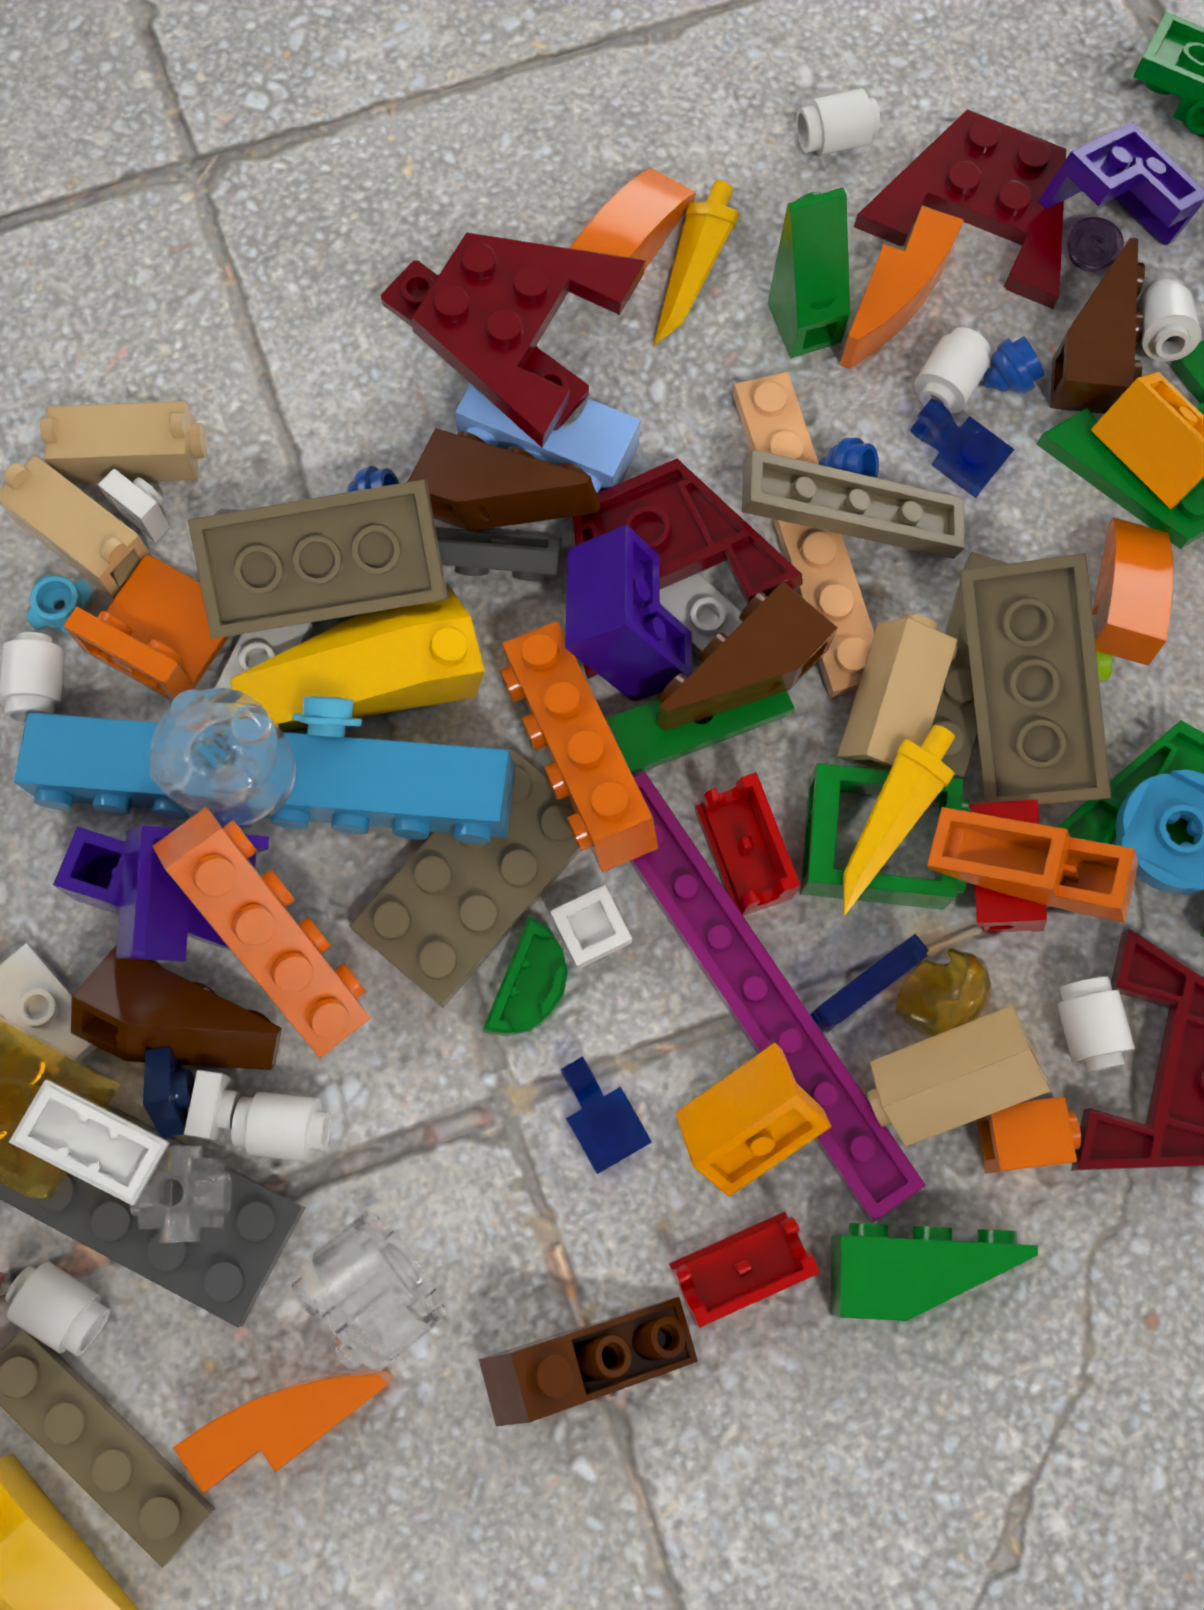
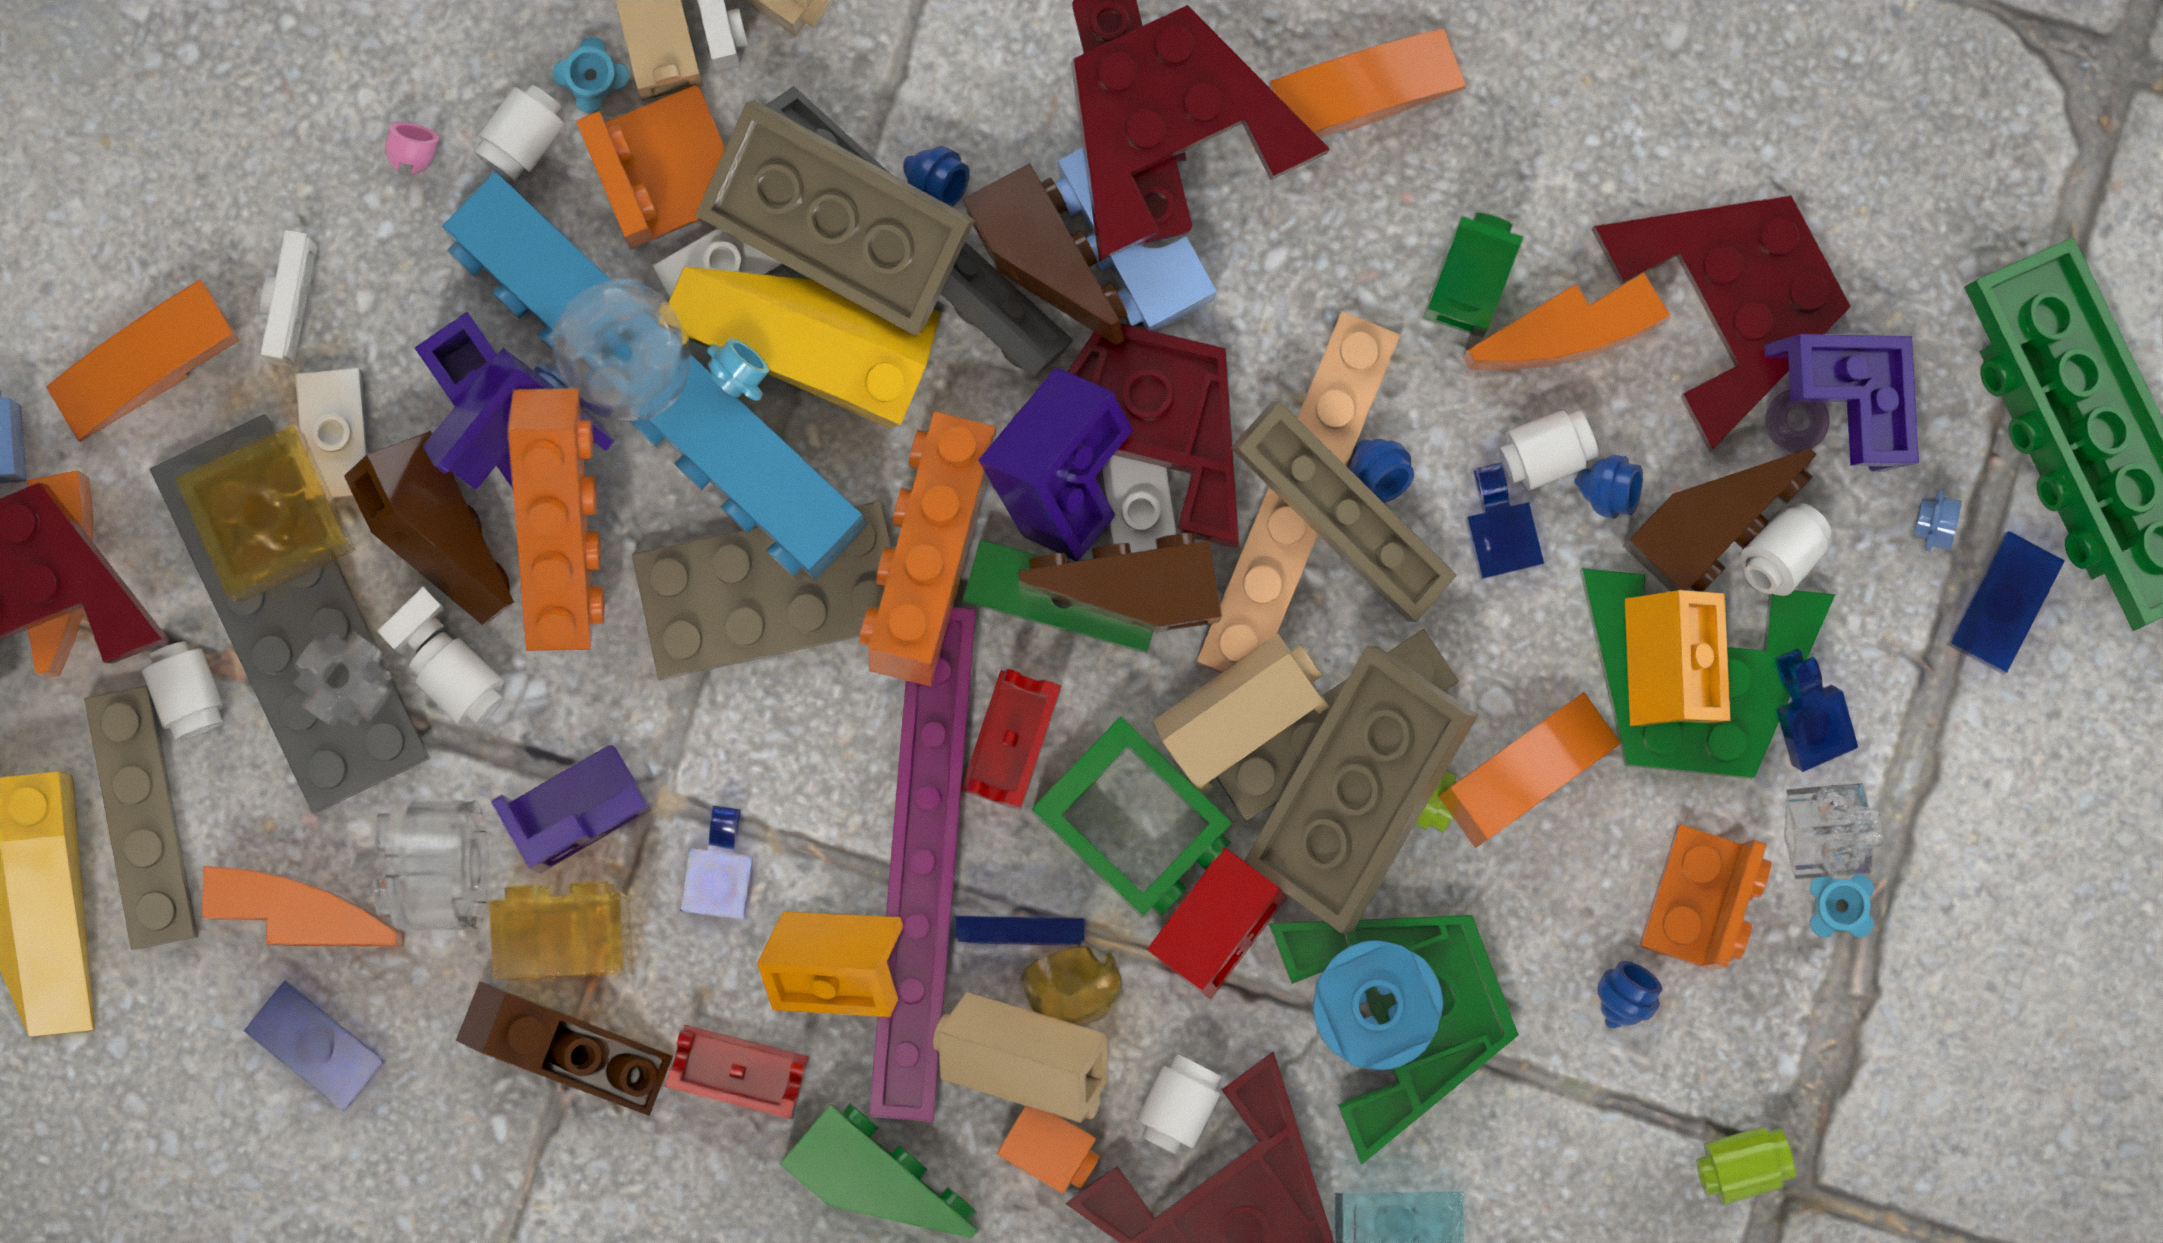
camera: 35 degrees right, 10 degrees up
(89, 1142) = (304, 591): white plate -> none
(167, 1091) = (388, 584): dark blue plate -> none
(380, 1525) = (315, 1046): none -> clear blue plate
(450, 1158) = (572, 809): none -> dark purple panel
(516, 1269) = (561, 934): none -> clear yellow brick
(531, 984) = (746, 716): green tile -> none
(591, 927) = (829, 707): white plate -> none
(701, 241) = (1428, 143): yellow bar -> none
(837, 122) = (1652, 119): white brick -> none
(906, 794) = (1165, 801): yellow bar -> none
(1035, 863) = (1222, 937): orange slope -> none

